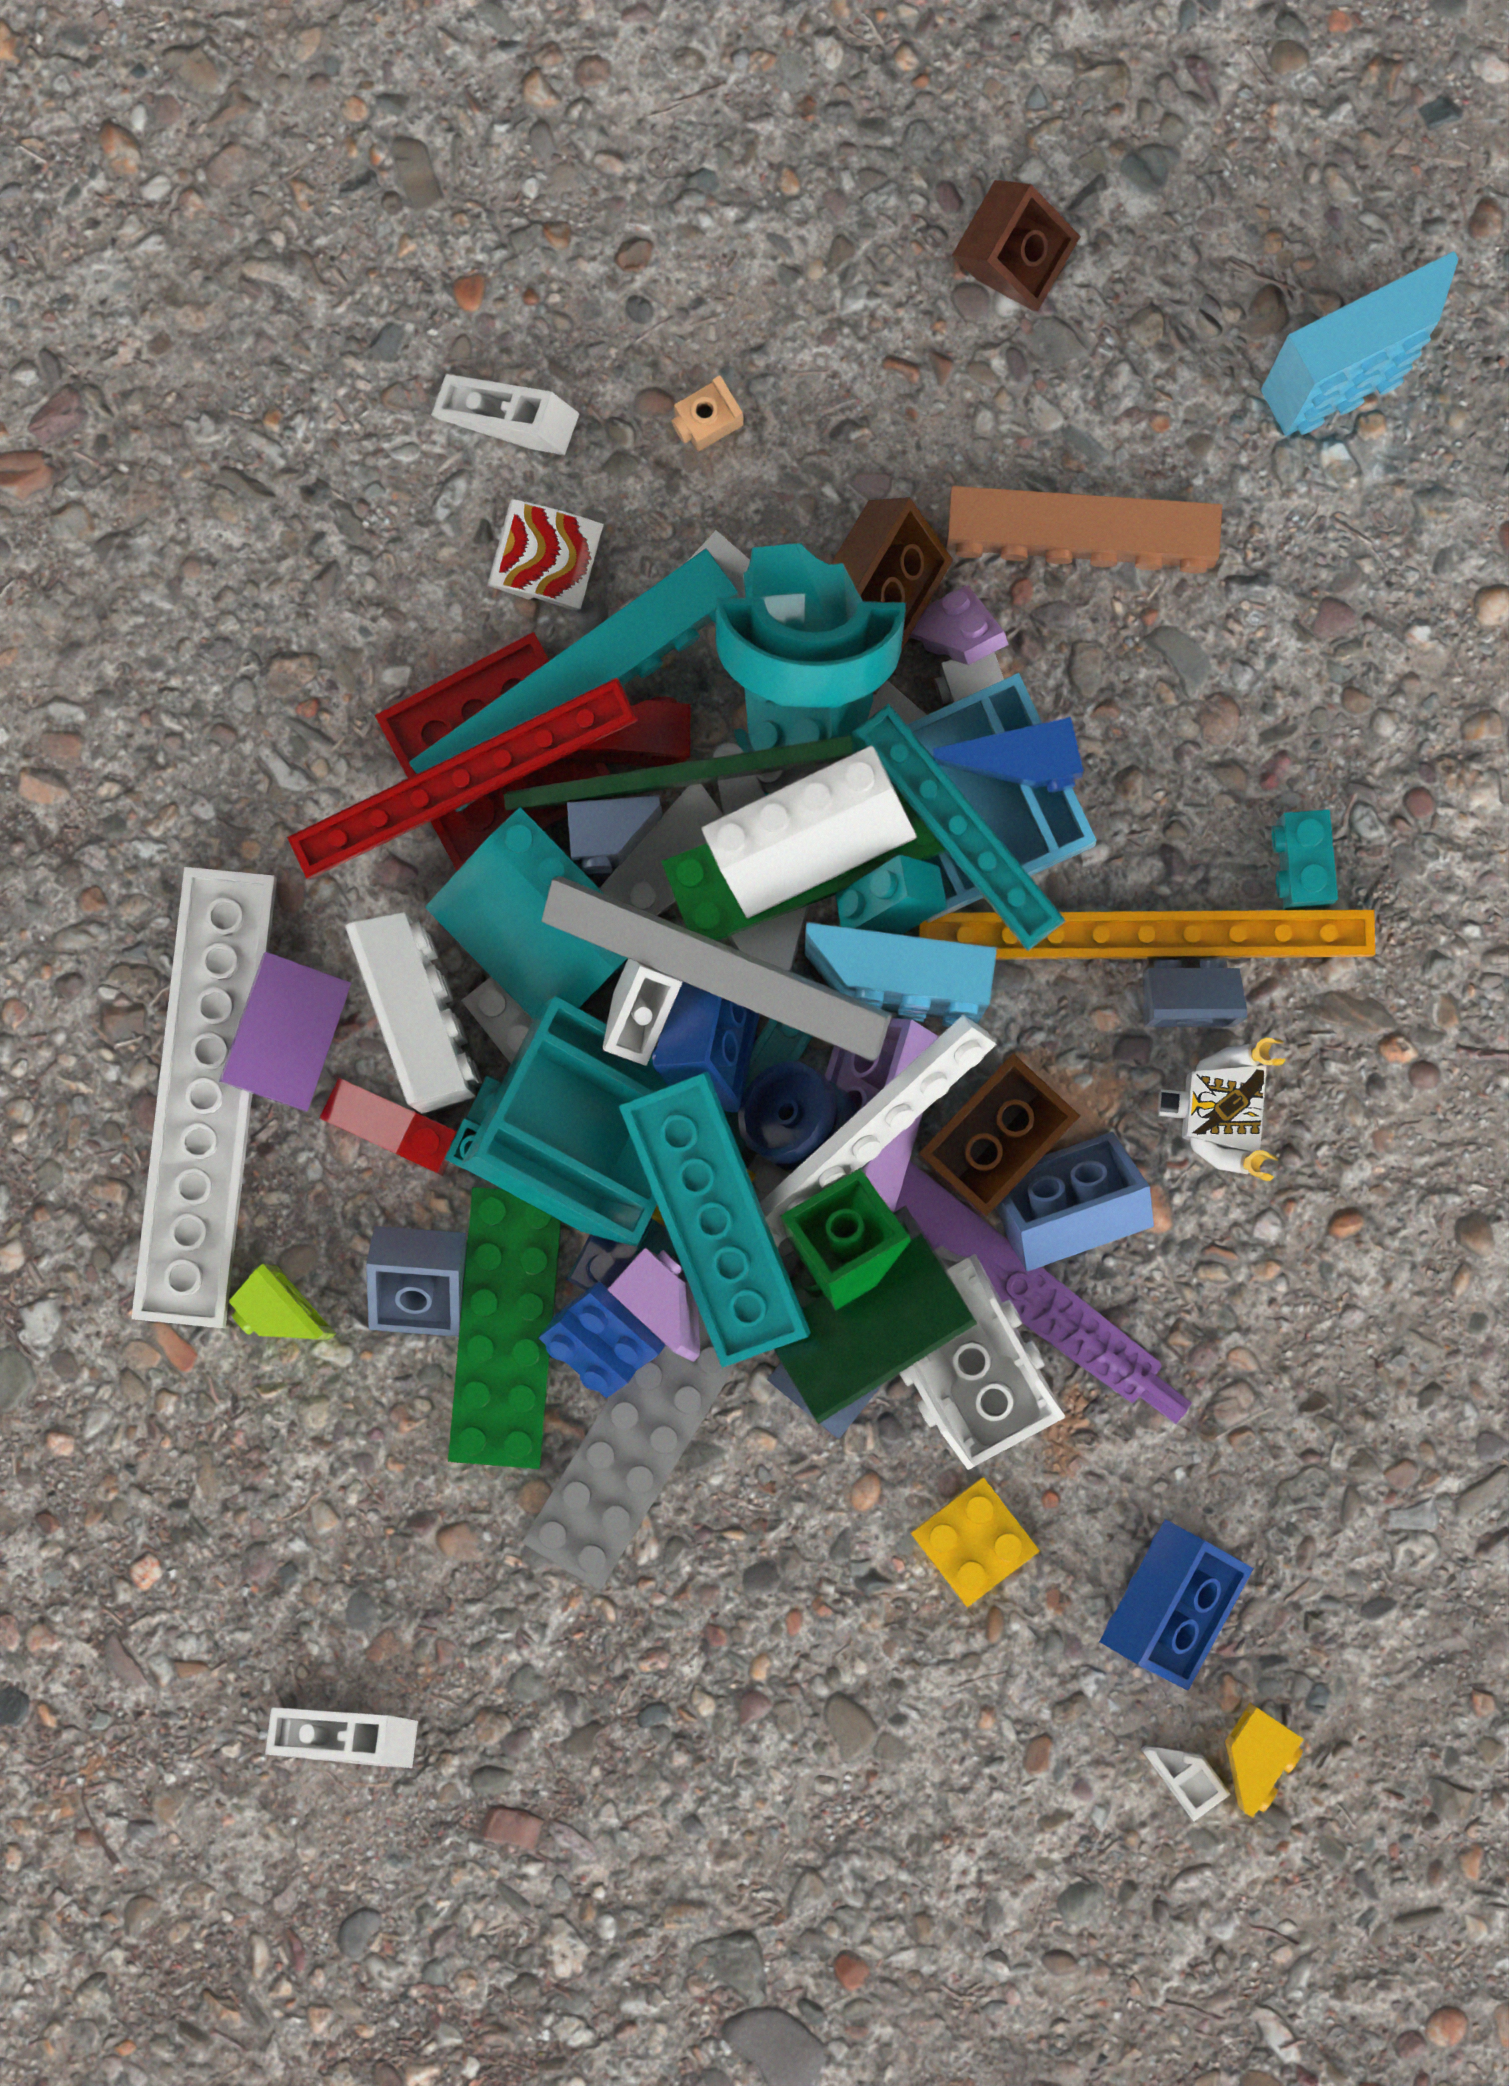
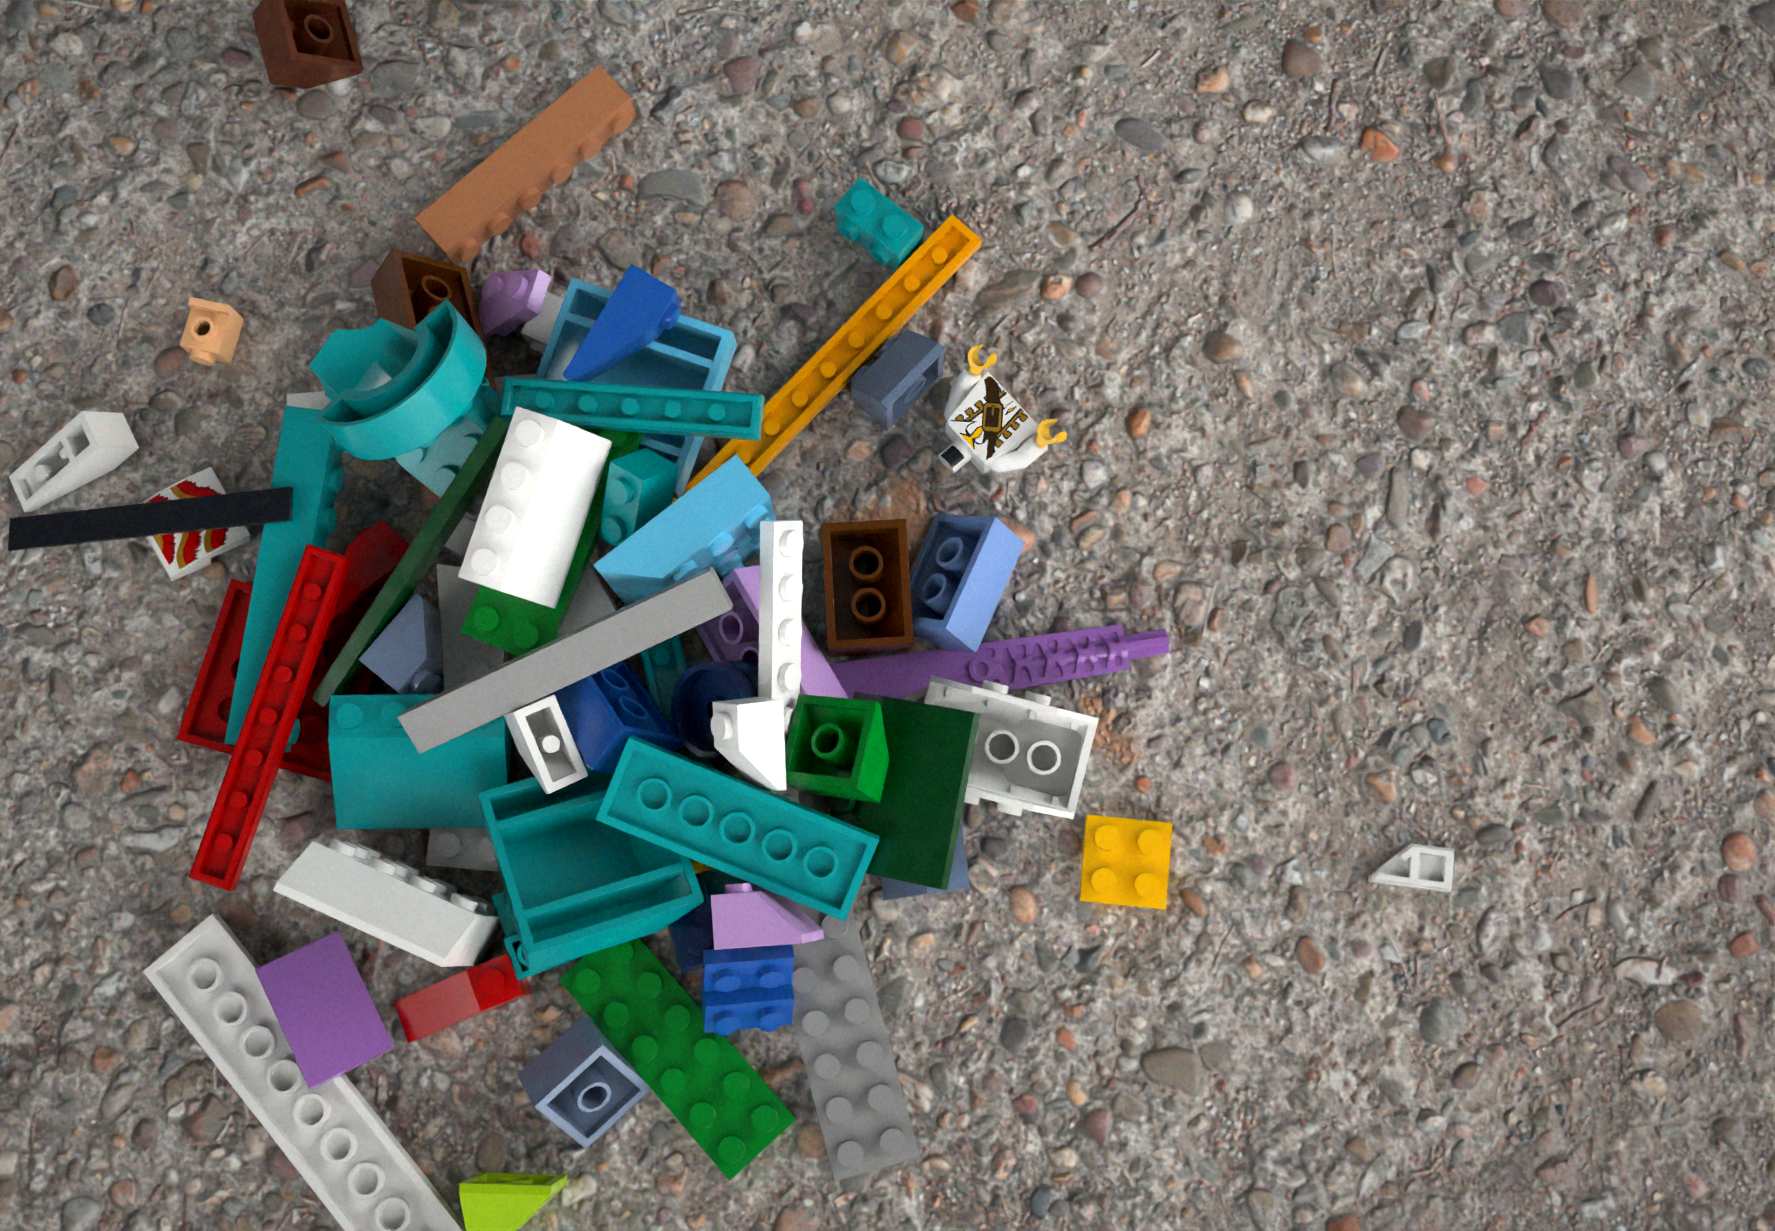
camera: 50 degrees left, 5 degrees down
(520, 527) = (151, 519): none -> black piece
(792, 1167) = (752, 738): none -> white slope
(1176, 1605) = (1291, 765): blue slope -> none
(1257, 1755) = (1445, 805): yellow slope -> none

